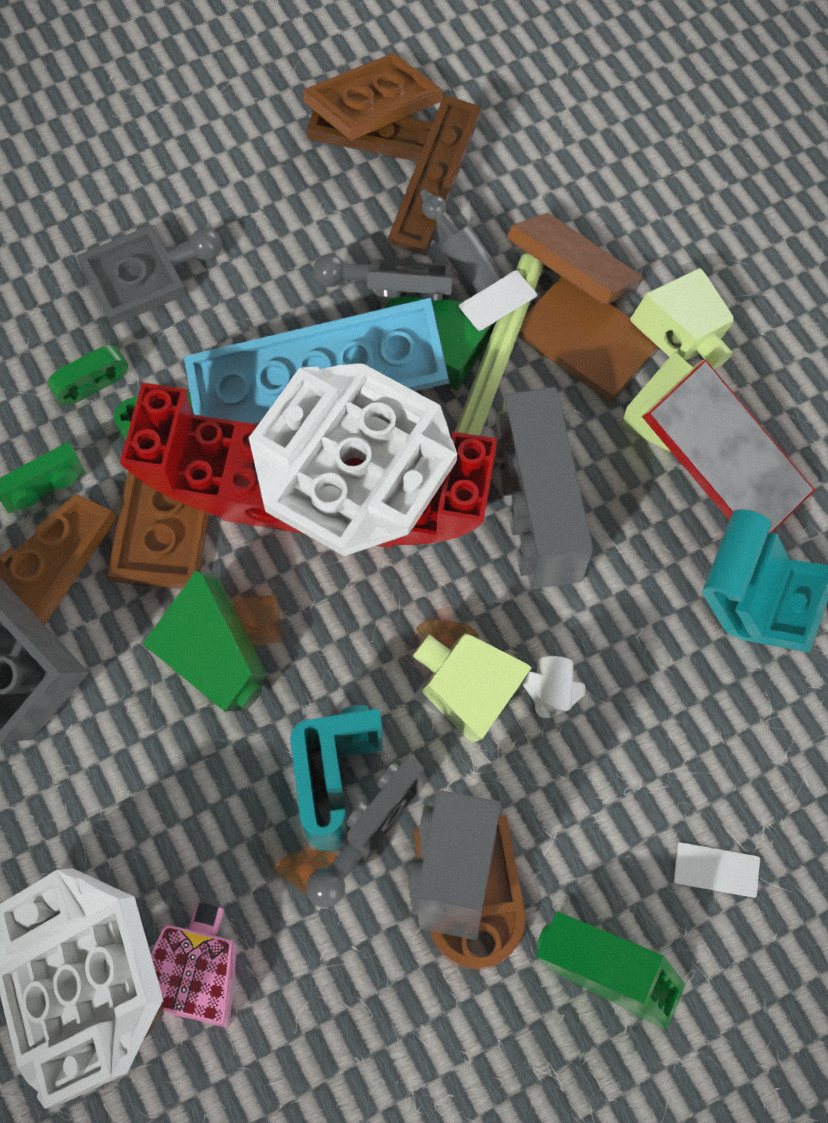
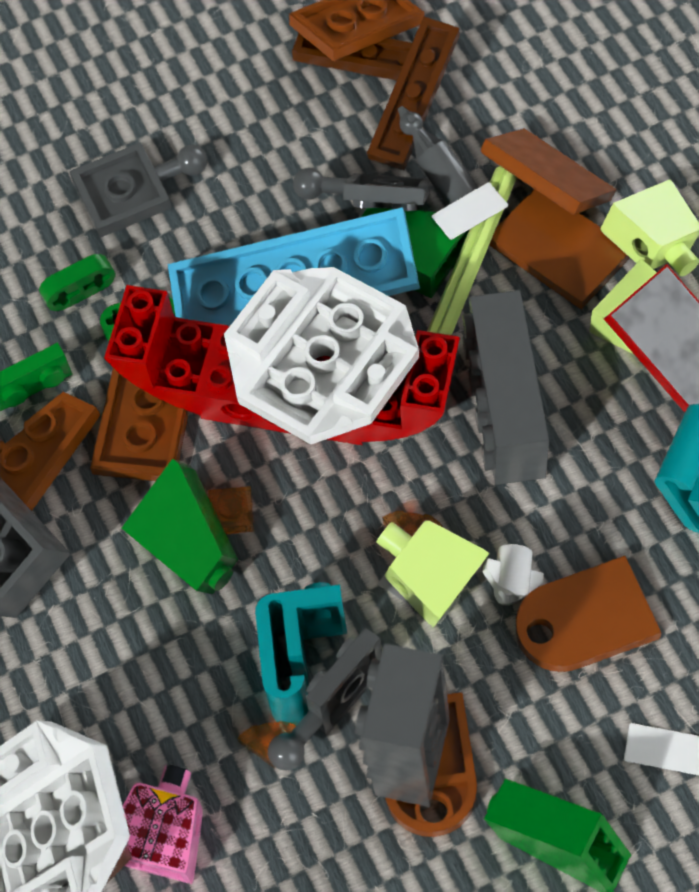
camera: 10 degrees right, 5 degrees down
(633, 730) = (589, 617): none -> dark orange tile

